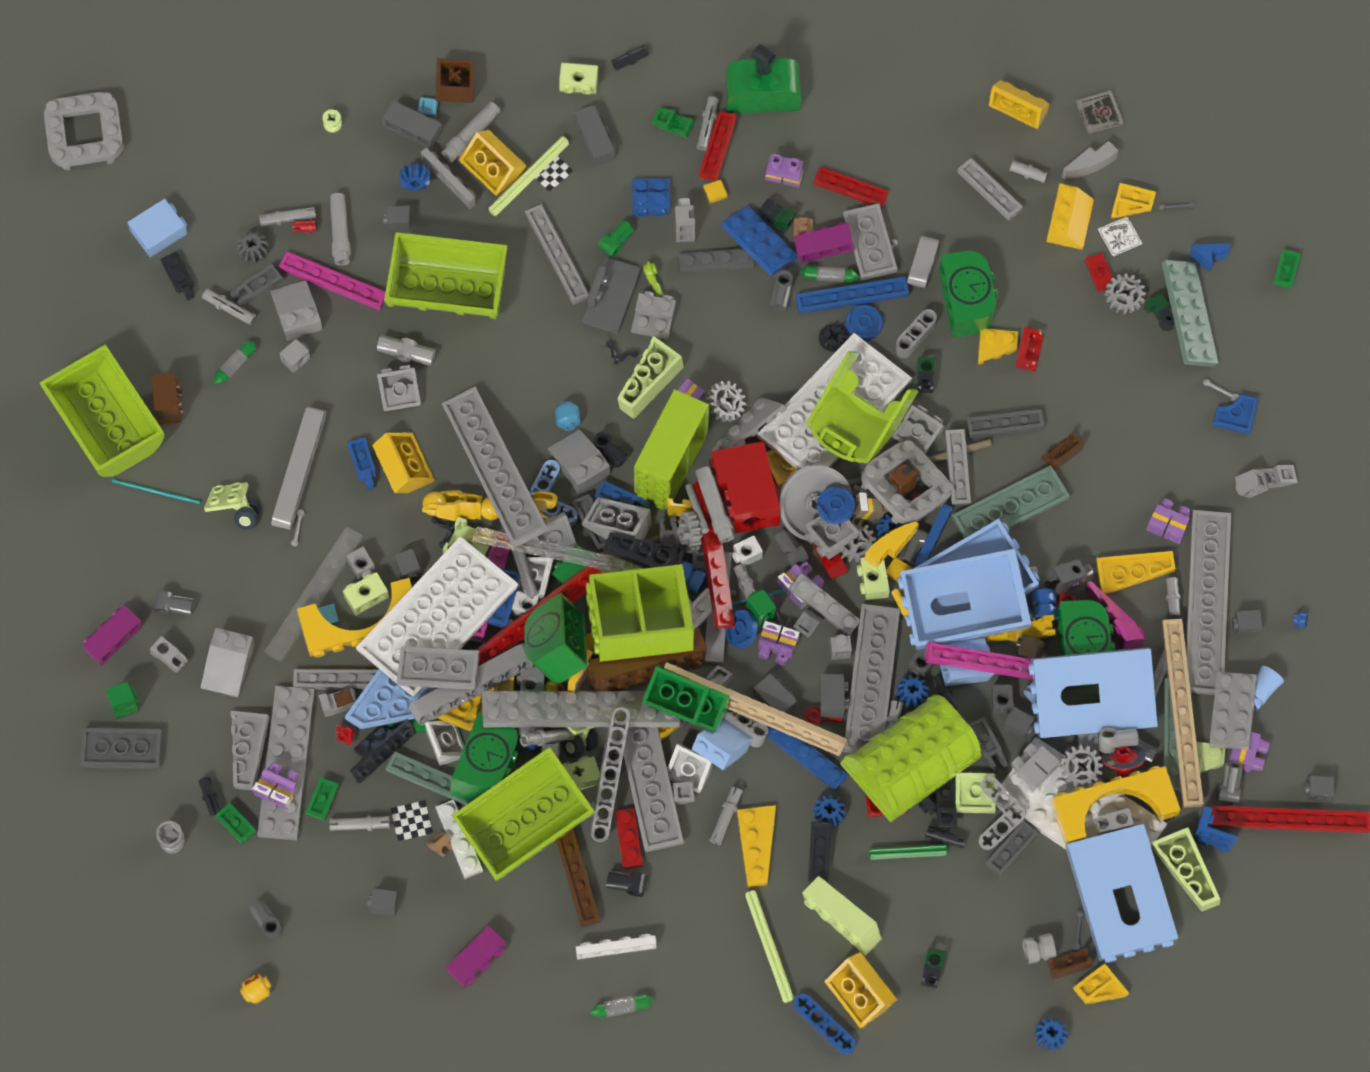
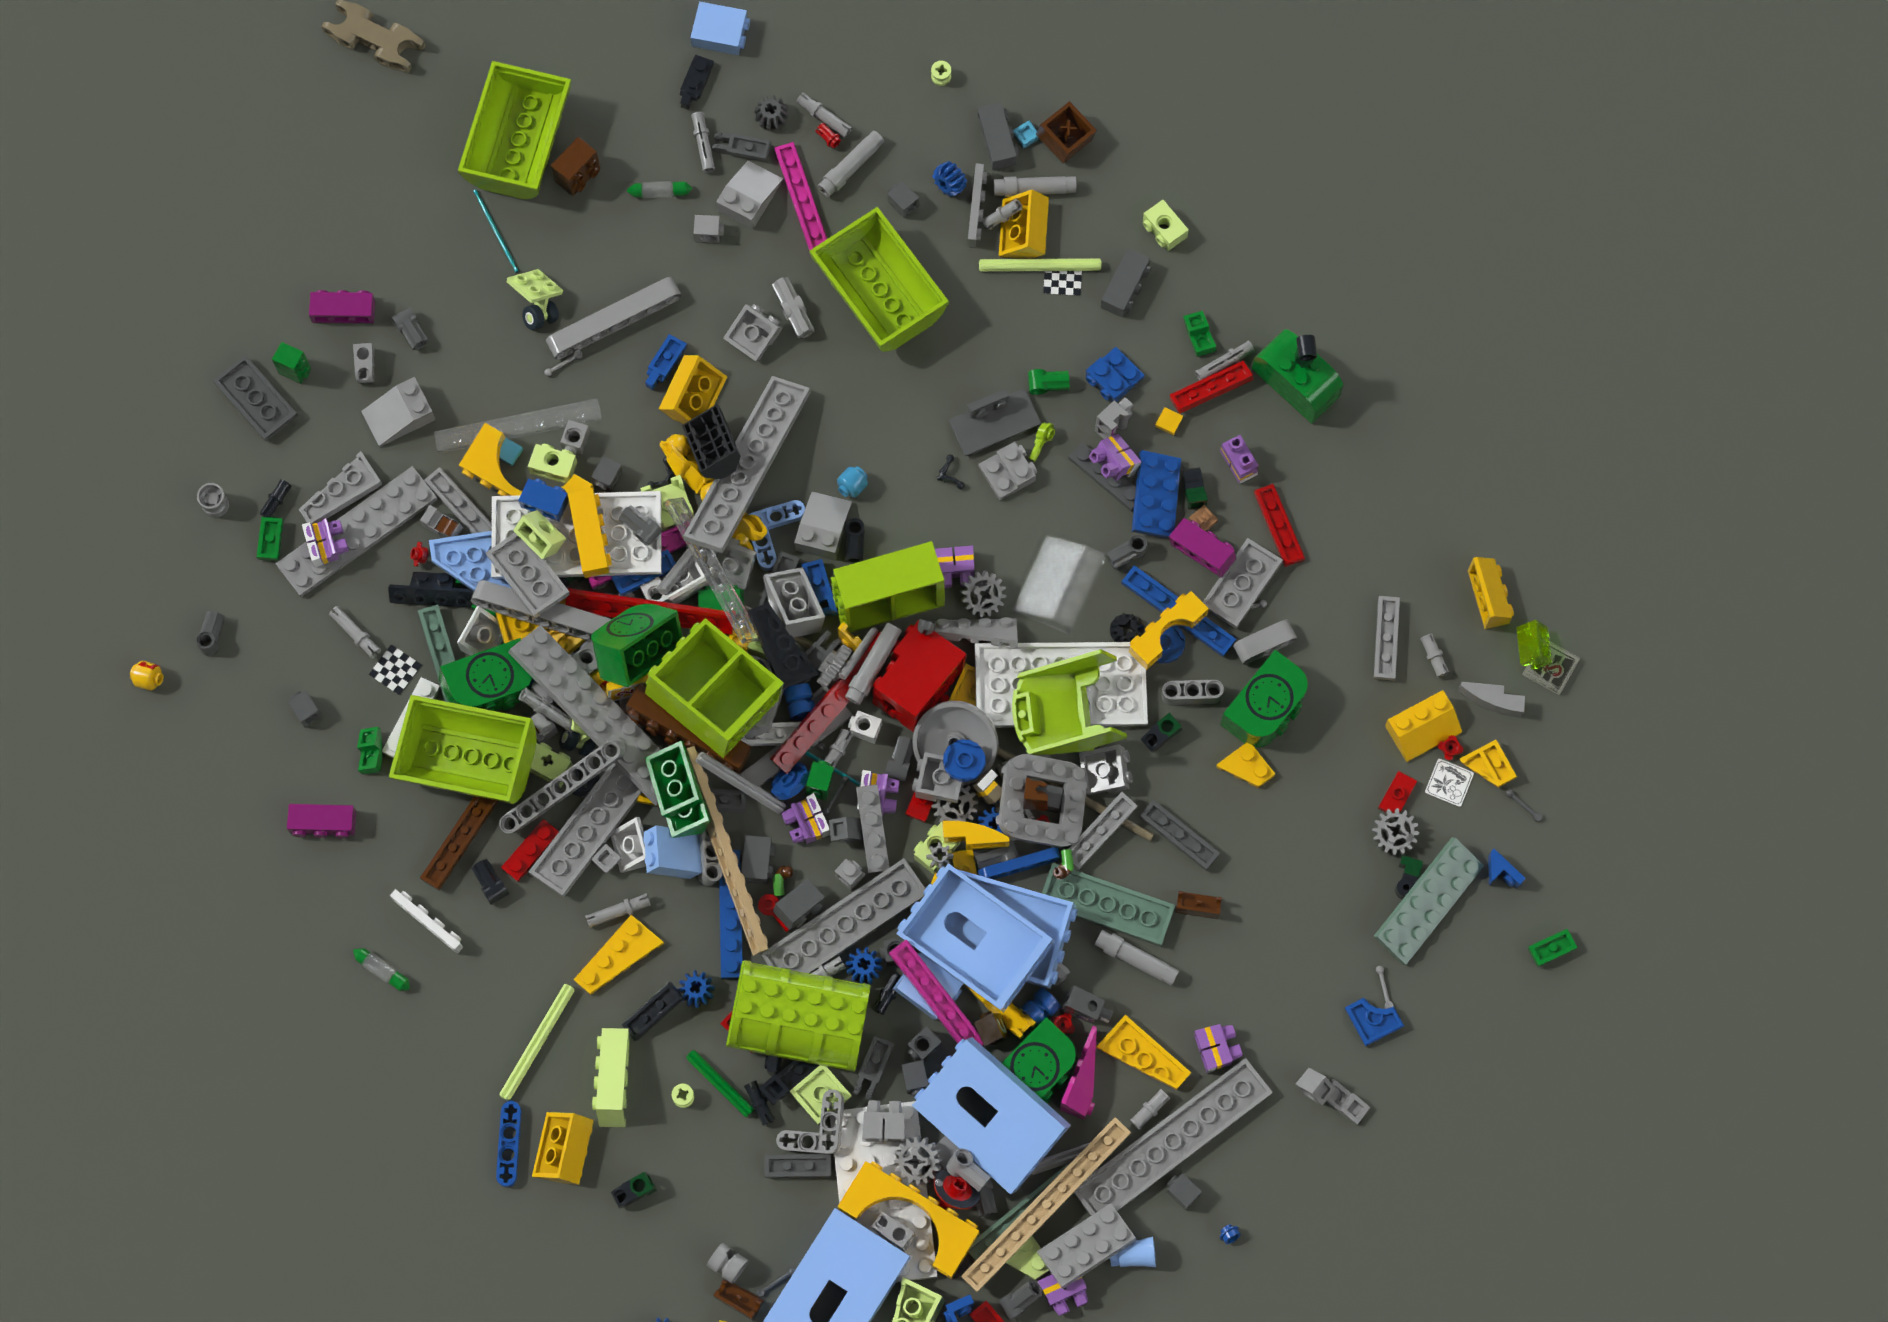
camera: 50 degrees right, 5 degrees up
(322, 799) = (349, 585): green plate -> none
(394, 613) = (547, 500): none -> blue brick
(418, 636) = (539, 534): none -> yellowish green brick
(438, 842) = (392, 705): medium nougat tile -> none
(447, 604) = (588, 532): none -> yellow brick
(456, 883) = (371, 750): none -> green slope
(459, 474) = (712, 444): none -> black piece
(472, 166) = (1002, 214): none -> light grey pin
(480, 566) = (644, 529): none -> dark grey piece
(557, 254) = (992, 347): light grey tile -> none
(630, 57) = (1224, 248): black pin -> none
(650, 377) = (946, 515): yellowish green wedge -> none
(712, 242) = (1115, 458): none -> medium lavender hips
(715, 658) = (740, 782): none -> light grey axle
(722, 449) = (924, 624): none -> dark grey hinge
(763, 350) = (1059, 583): none -> clear slope
(801, 695) = (779, 878): none -> arm
(829, 274) = (1179, 574): piece -> none
(863, 331) = (1187, 612): none -> yellow arch
(884, 572) = (939, 849): none -> light grey gear
(895, 886) = (684, 1099): none -> yellowish green wheel
(963, 508) = (1066, 866): none -> arm
(1029, 349) = (1267, 797): red hinge -> none
(1046, 524) = (1117, 947): none -> light grey piece
(1078, 107) = (1534, 644): none -> clear neon green hinge
(1098, 210) = (1444, 746): none -> red plate

